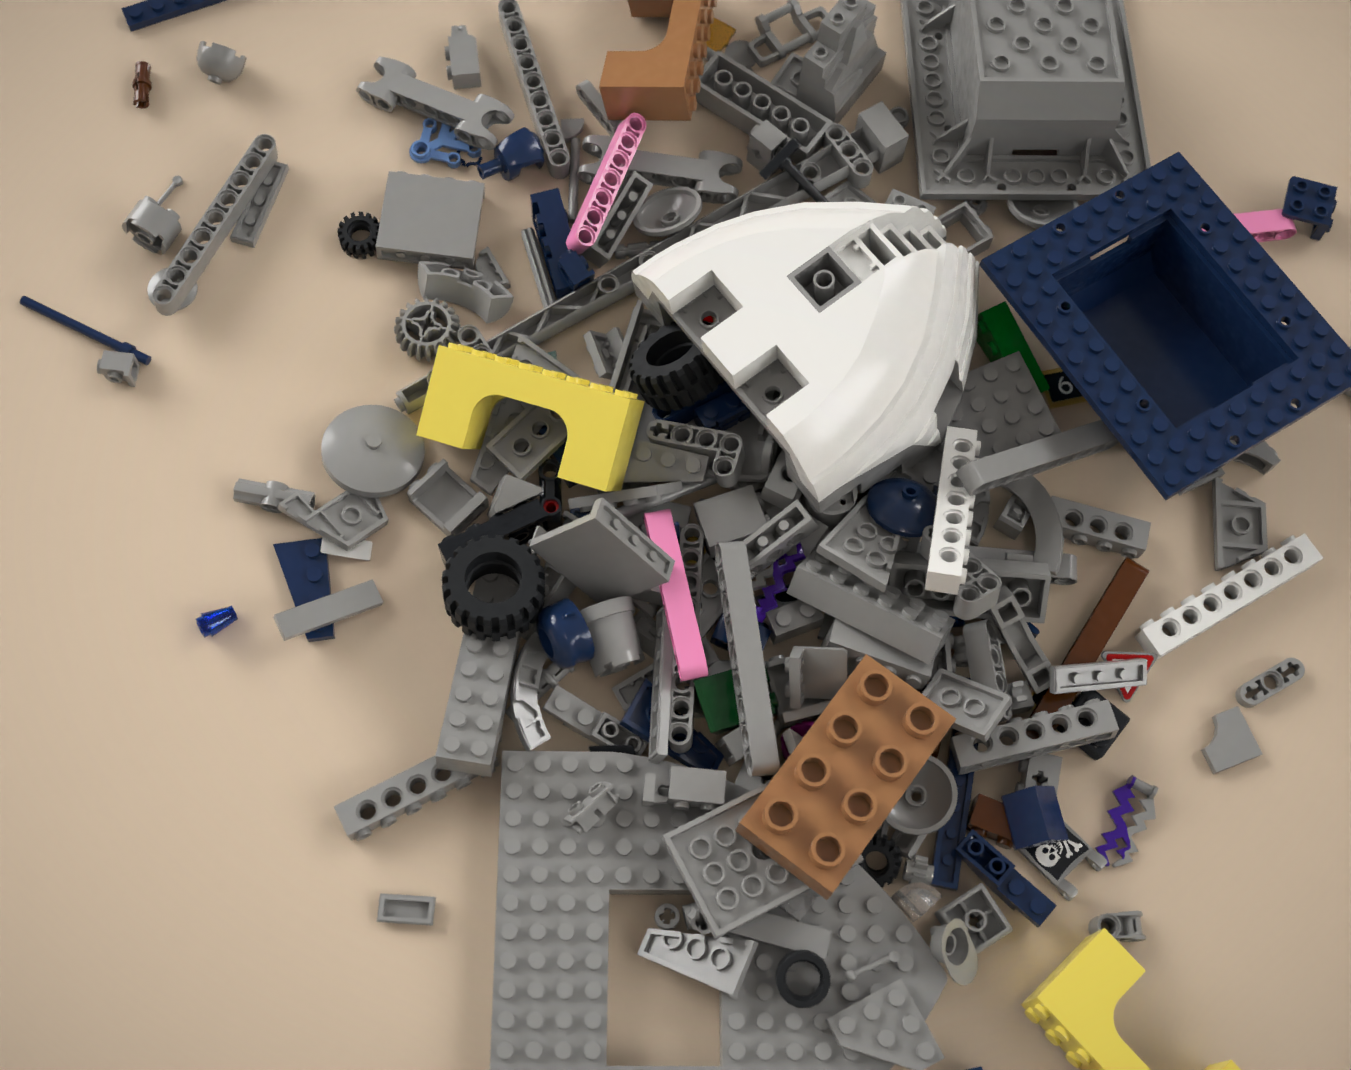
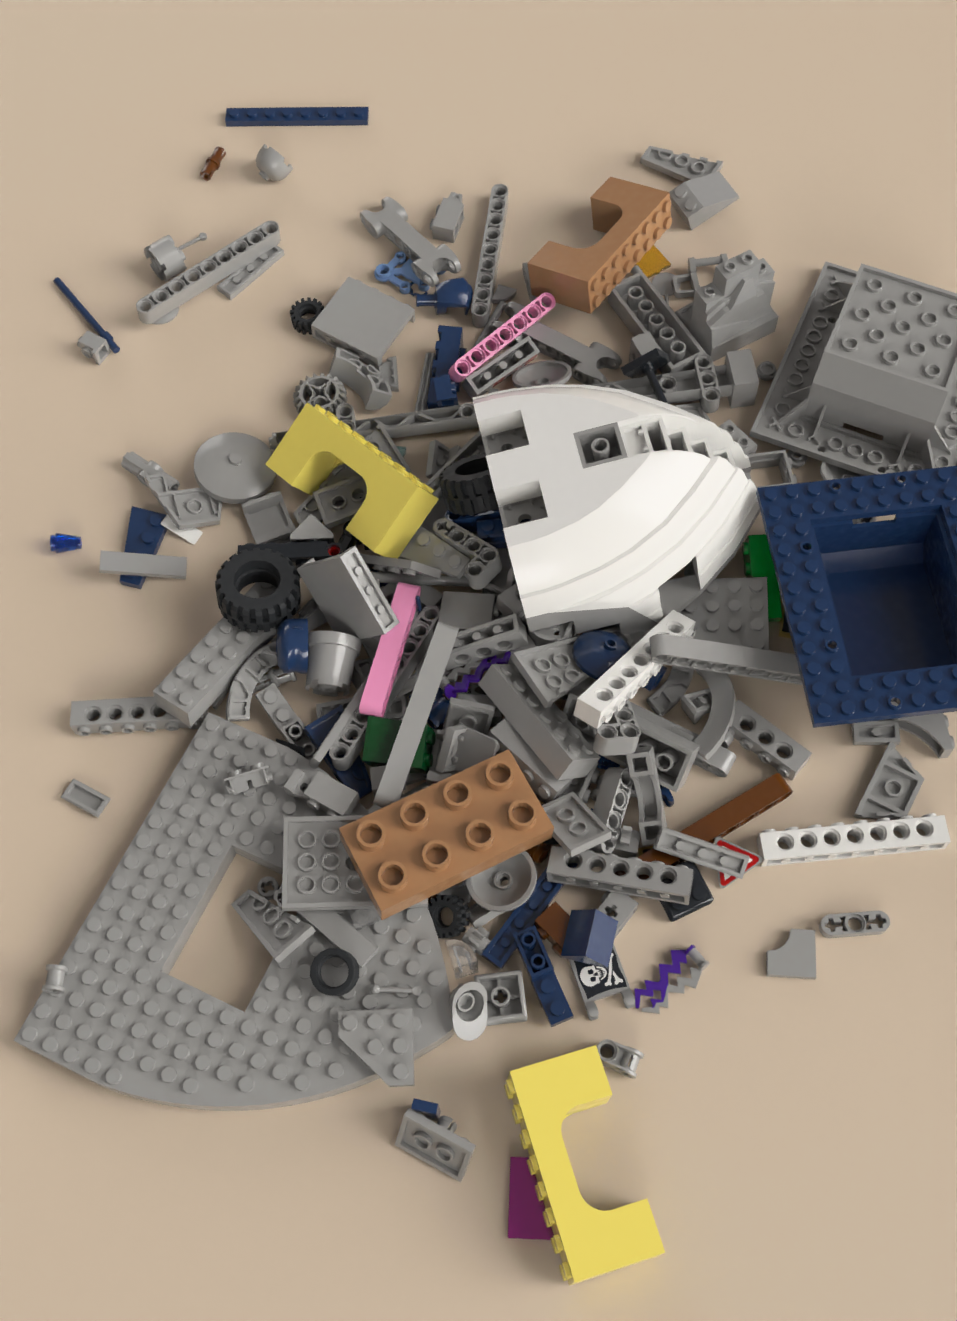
camera: 35 degrees right, 5 degrees down
(788, 632) = (469, 713): none -> light grey tile

